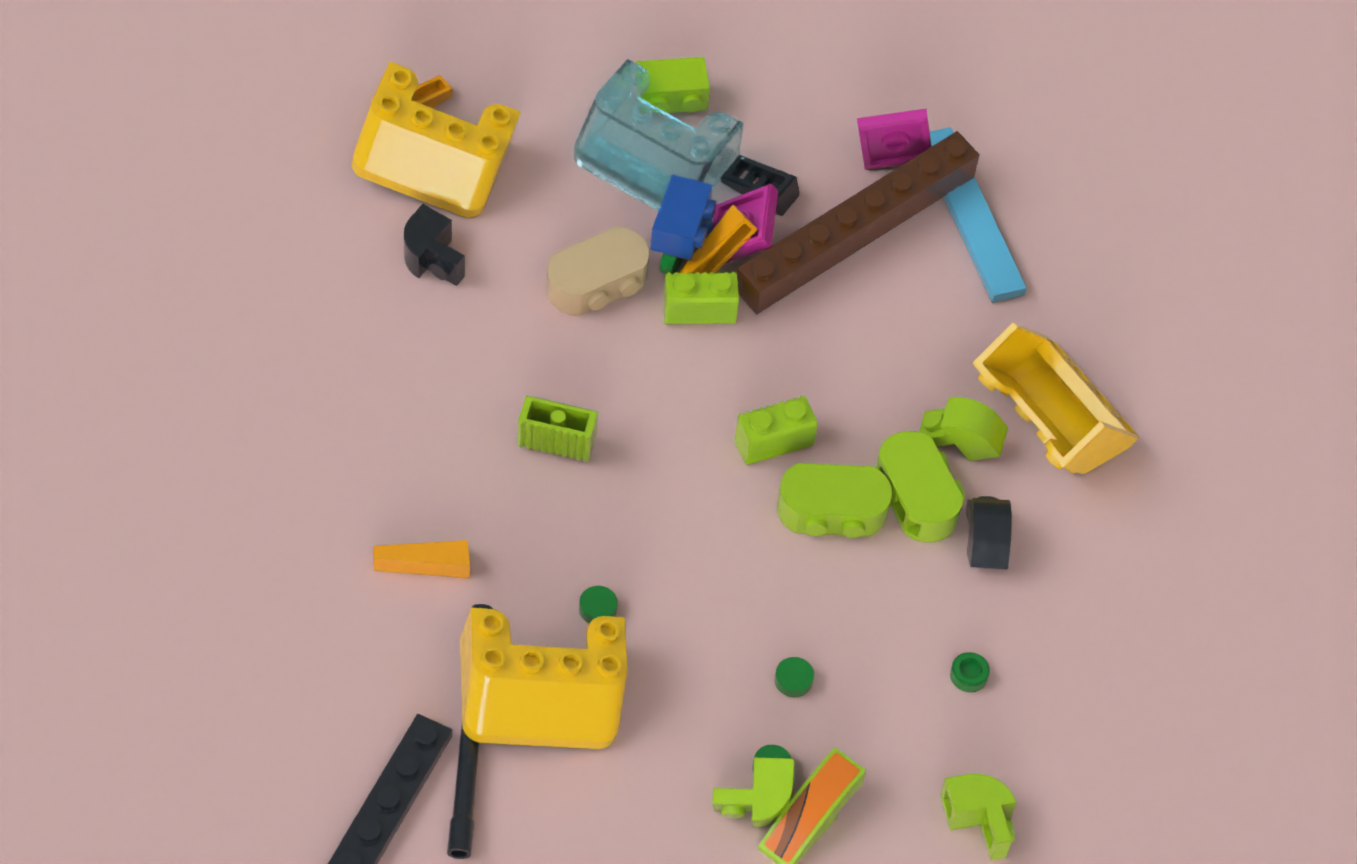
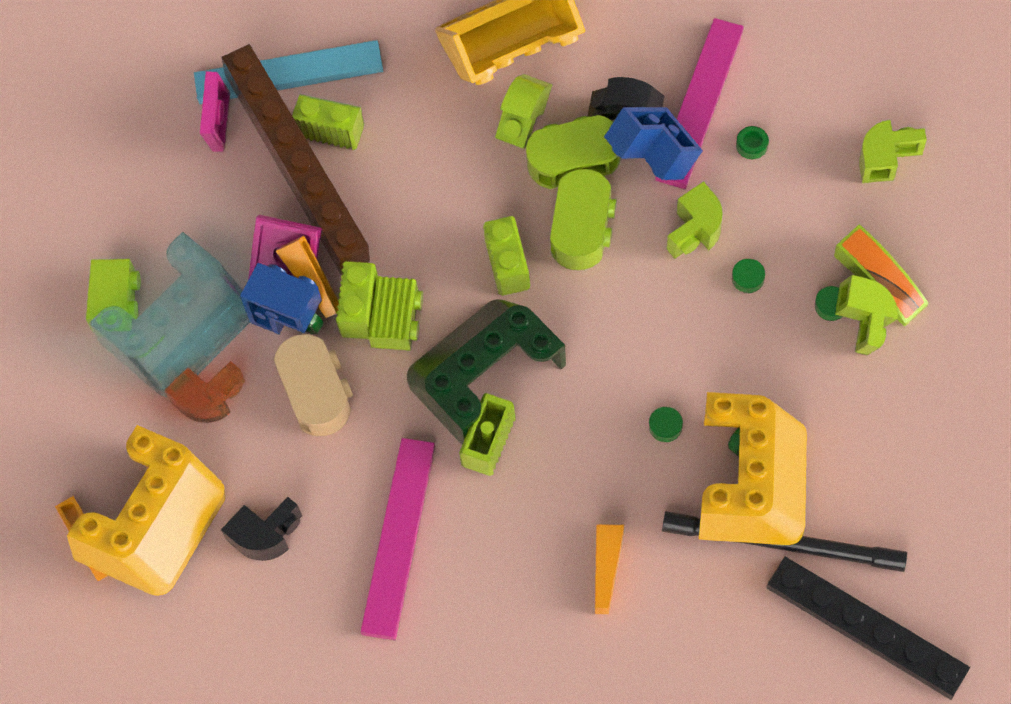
camera: 70 degrees left, 10 degrees up
(438, 368) = (398, 539): none -> dark pink tile
(573, 180) = (203, 400): none -> clear orange brick
(683, 431) = (446, 370): none -> dark green windscreen
(690, 335) = (394, 313): none -> lime brick
(785, 183) = (230, 221): black slope -> none
(851, 623) = (702, 219): none -> lime brick
(911, 249) = (329, 121): none -> lime brick
(942, 550) = (657, 138): none -> blue brick
(1013, 614) = (707, 84): none -> dark pink tile

